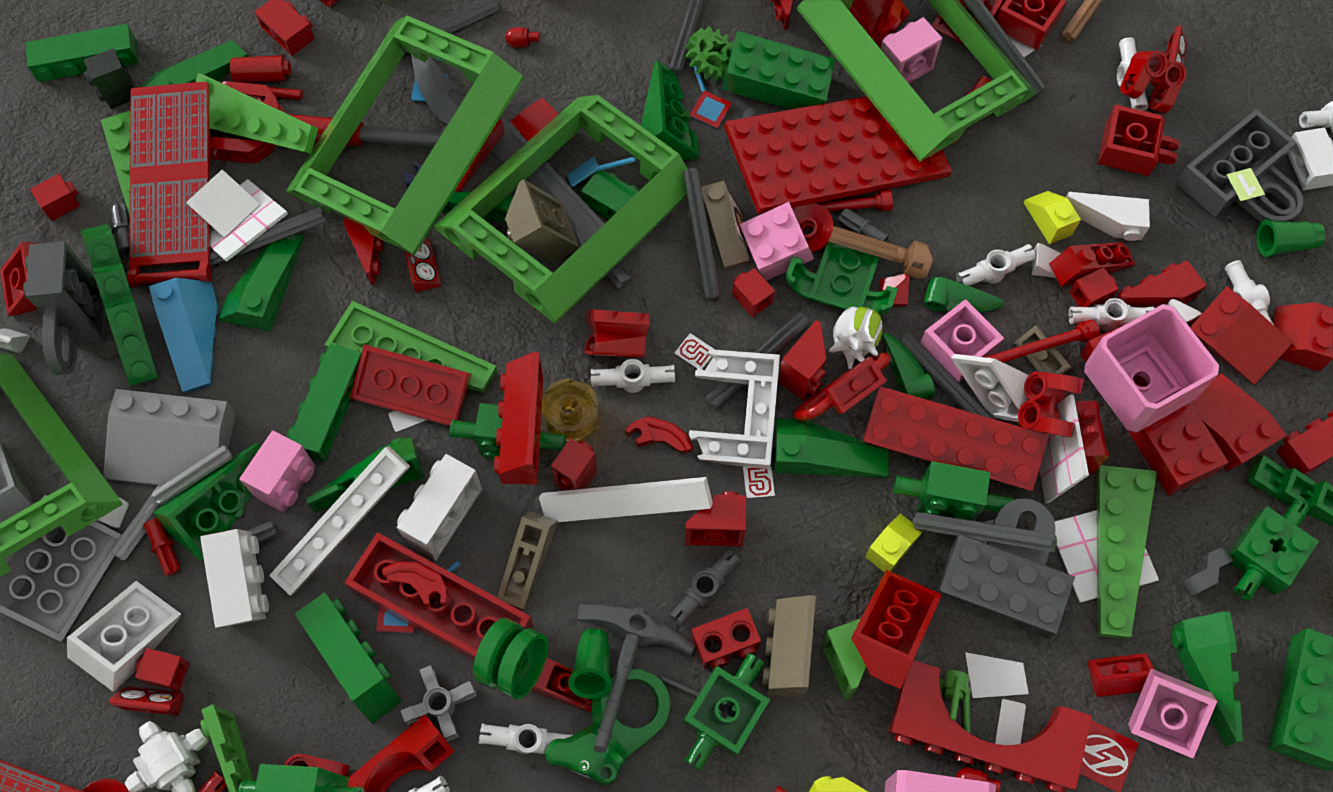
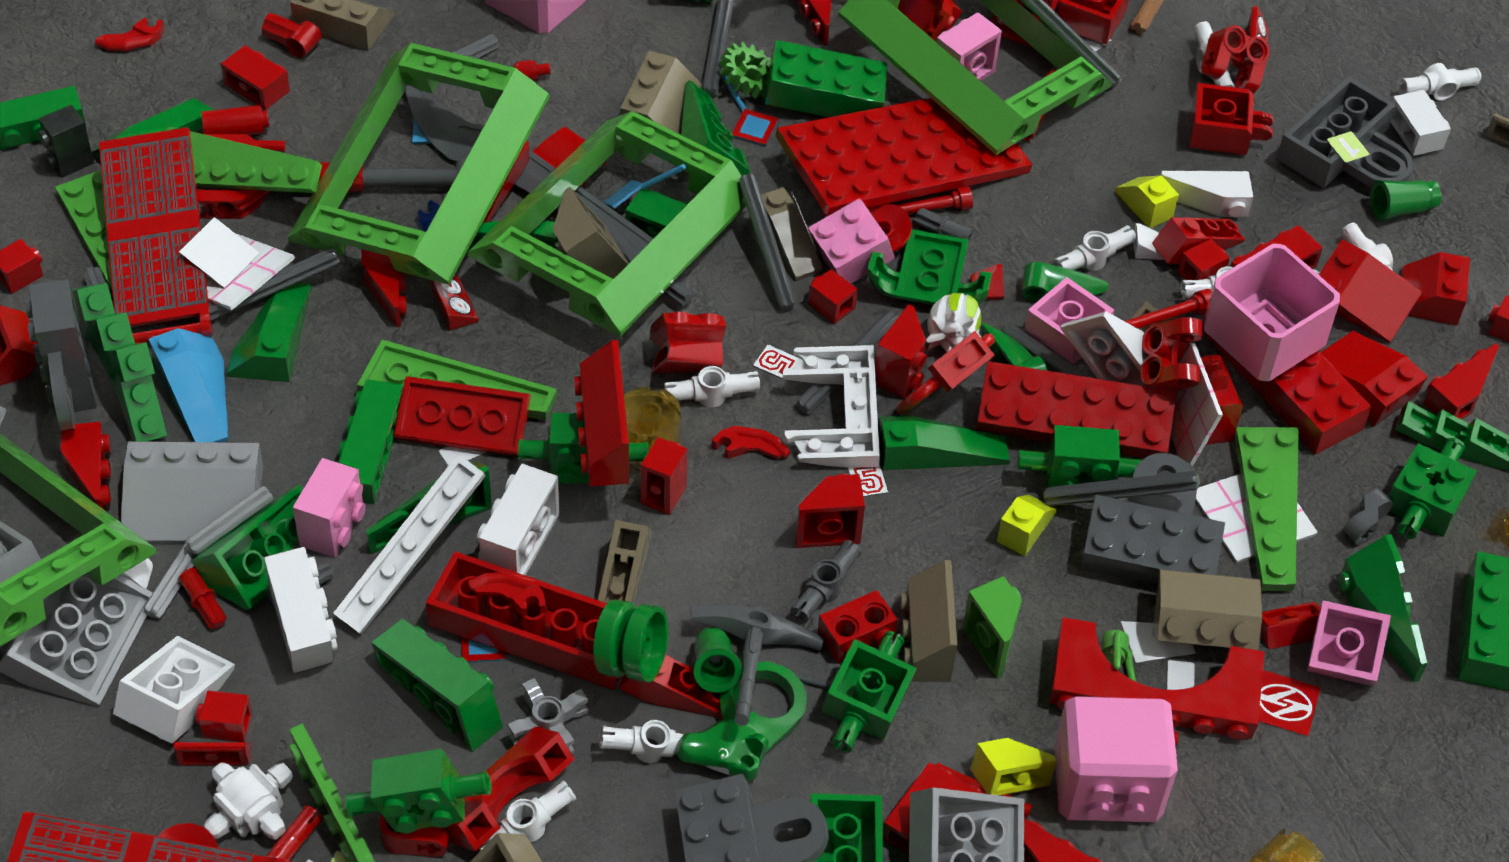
camera: 10 degrees left, 15 degrees down
(84, 399) = (86, 462): none -> red slope
(627, 500) = (729, 494): white tile -> none
(628, 74) = (660, 91): none -> dark tan slope
(894, 627) = (1041, 584): red slope -> none
(915, 259) = (974, 242): medium nougat piece -> none
(1046, 663) = (1208, 609): none -> dark tan slope

